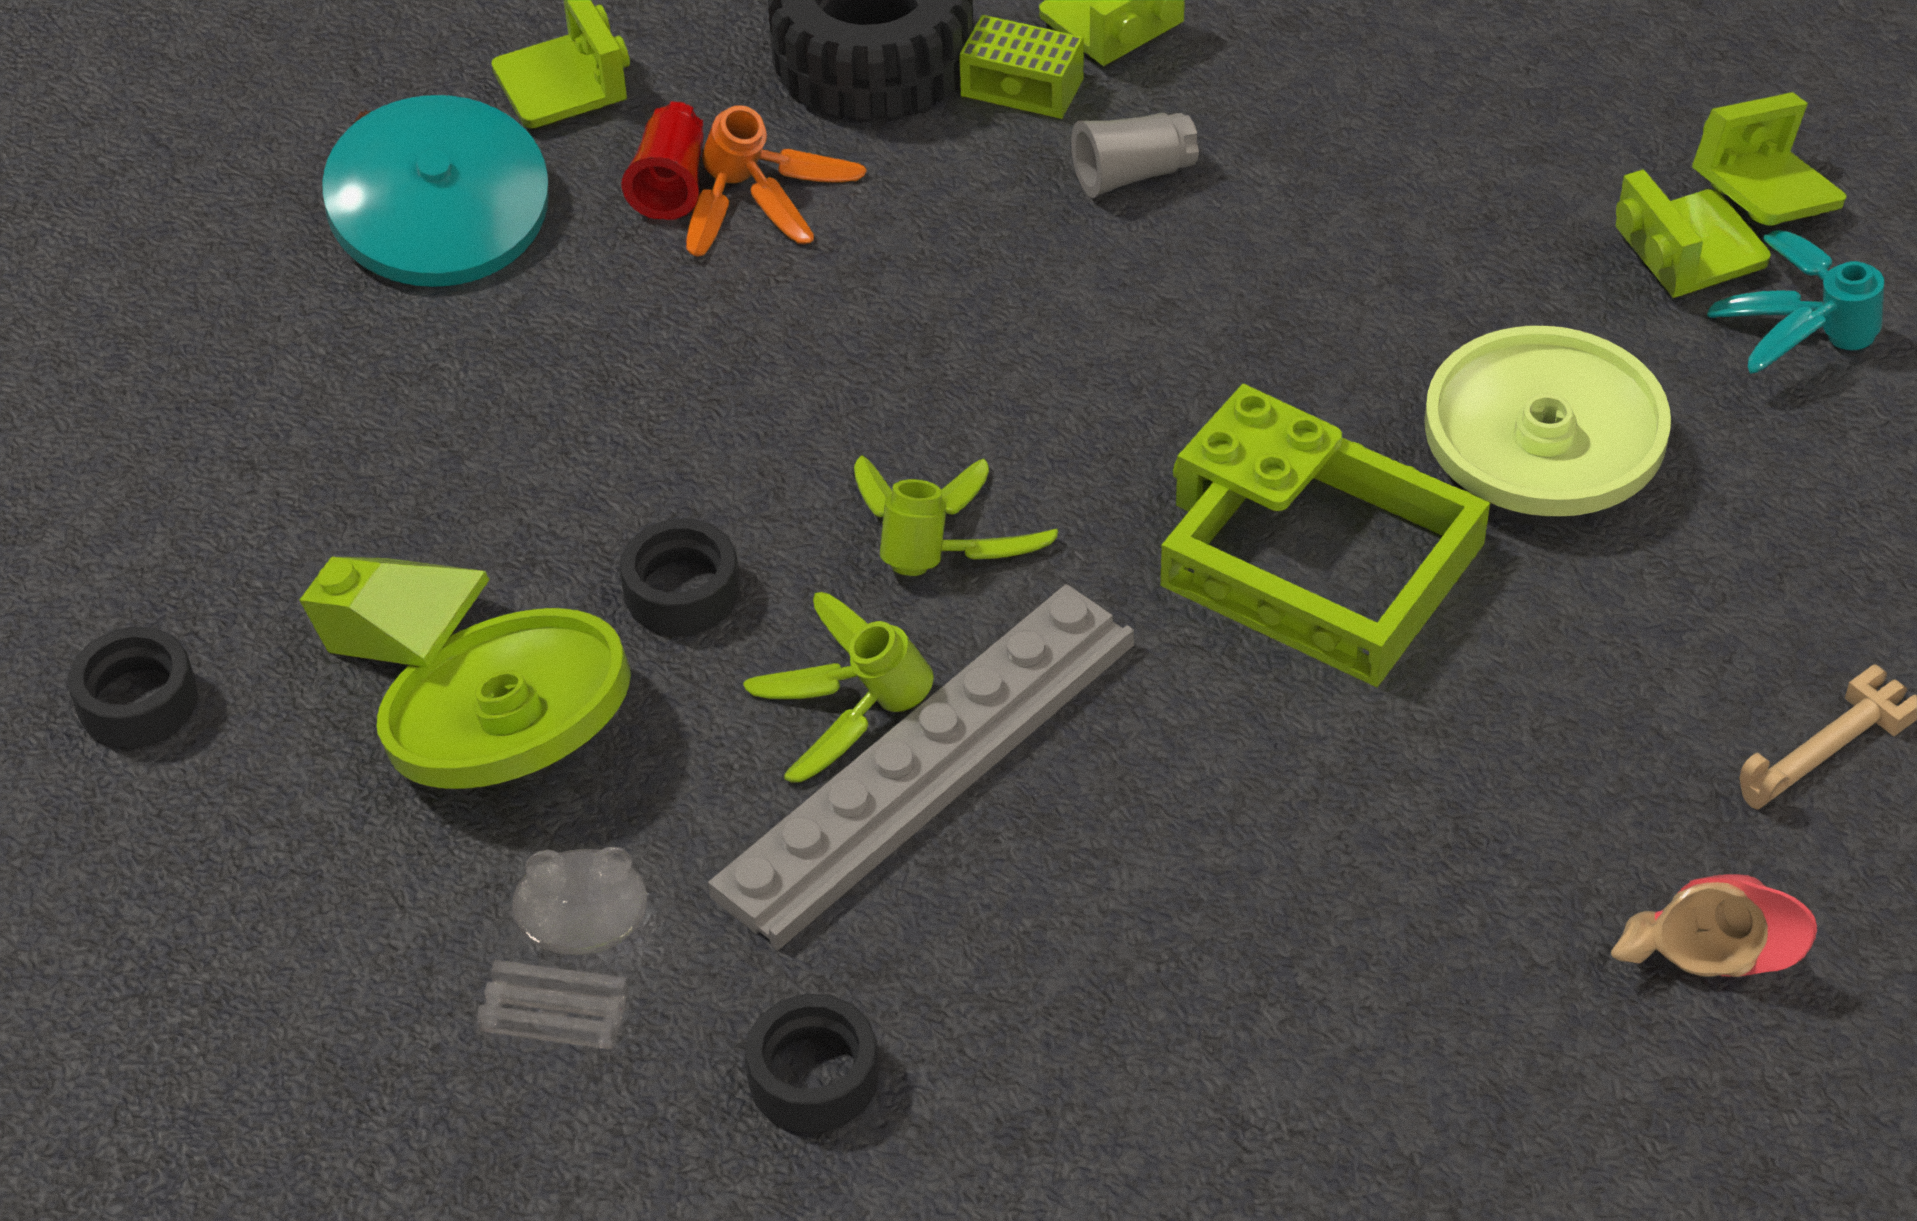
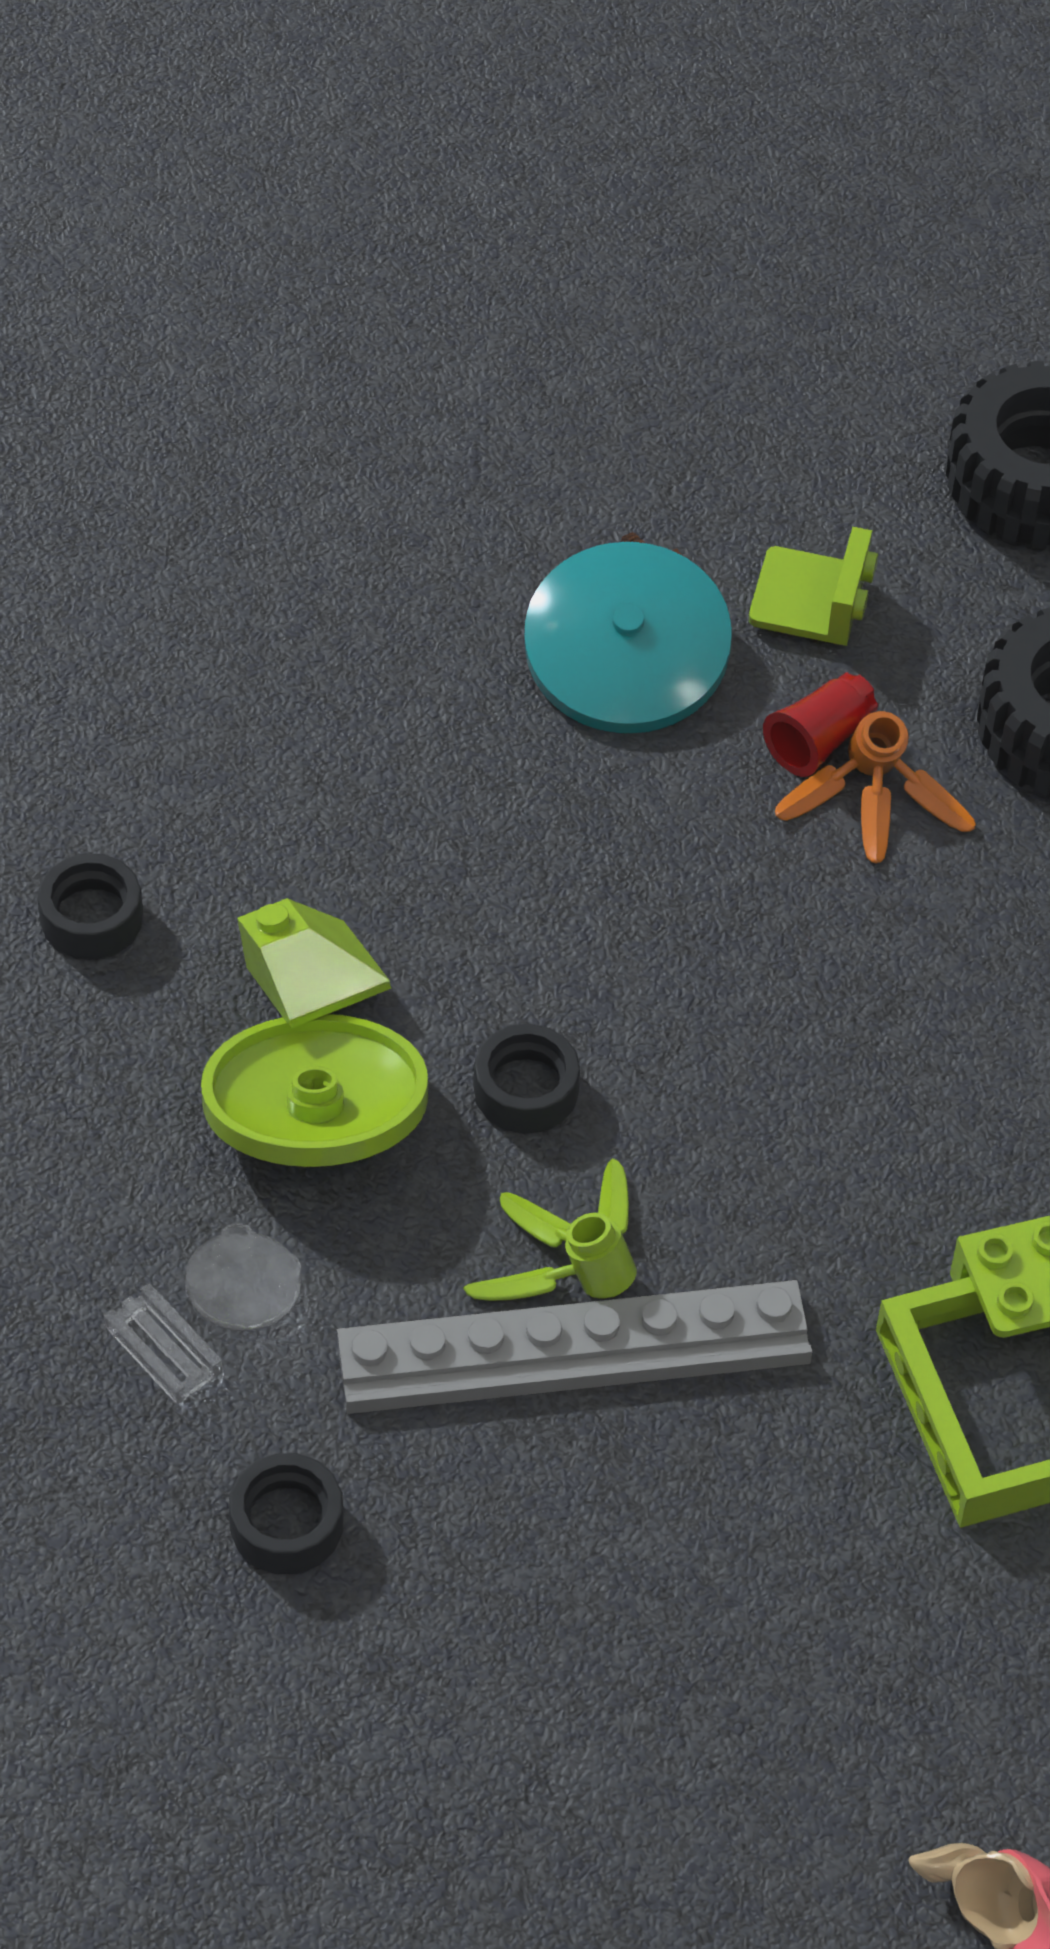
camera: 35 degrees right, 5 degrees up
(916, 519) = (727, 1145): lime plant -> none

